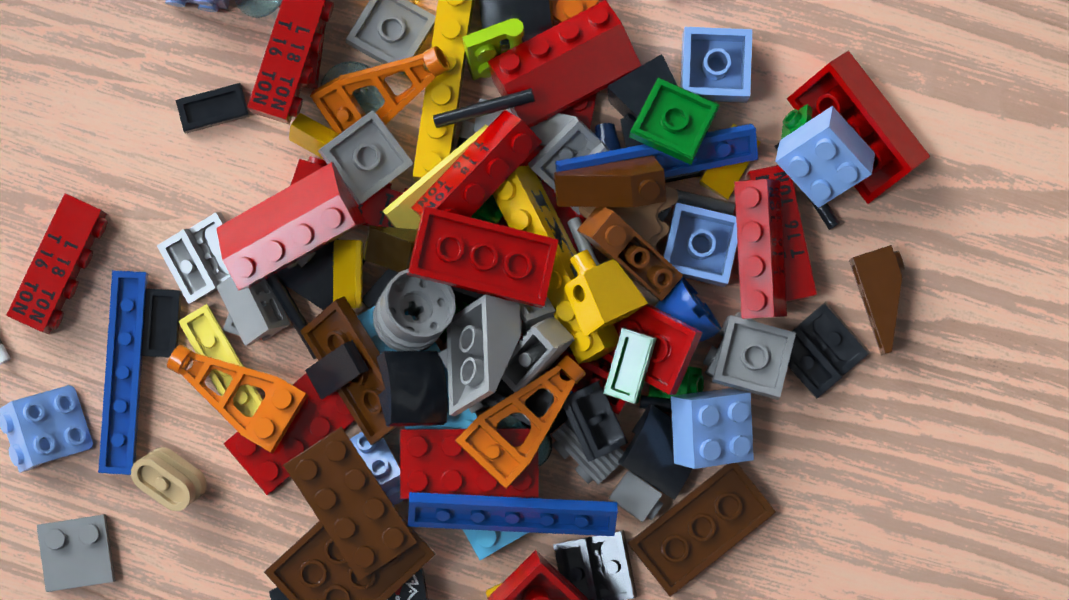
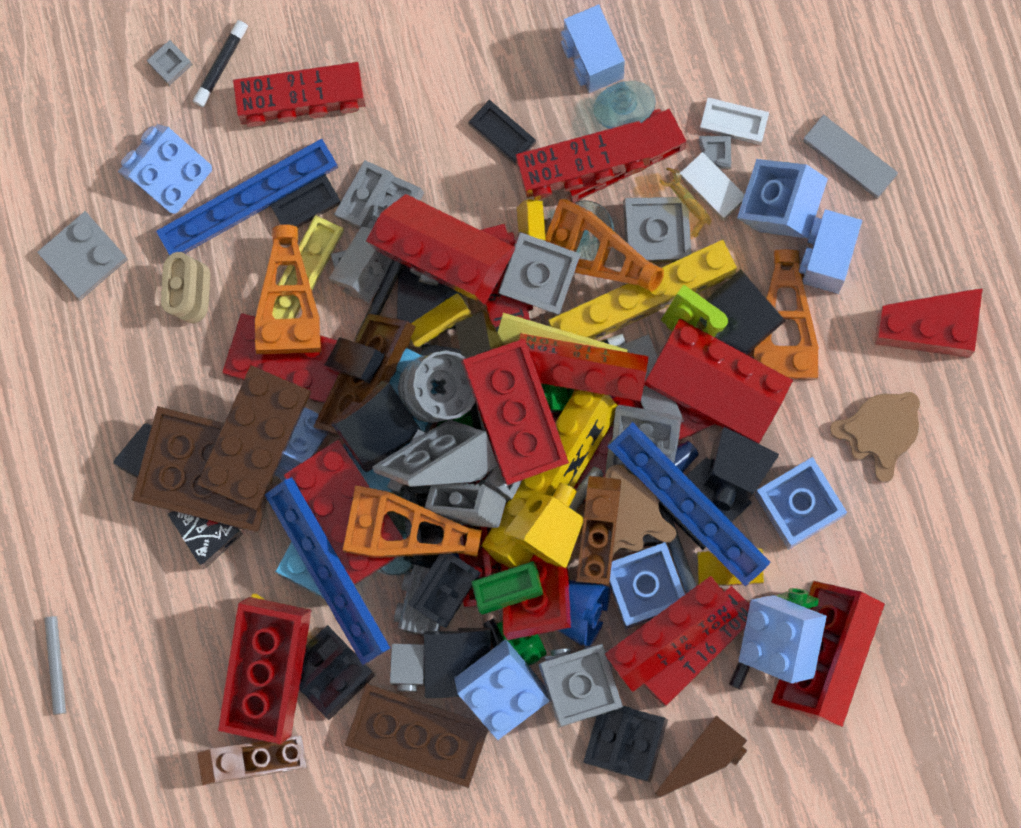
camera: 65 degrees right, 5 degrees down
(484, 108) = (638, 339): black bar -> none
(612, 184) = (643, 478): reddish brown slope -> none
(674, 121) = (728, 496): green tile -> none

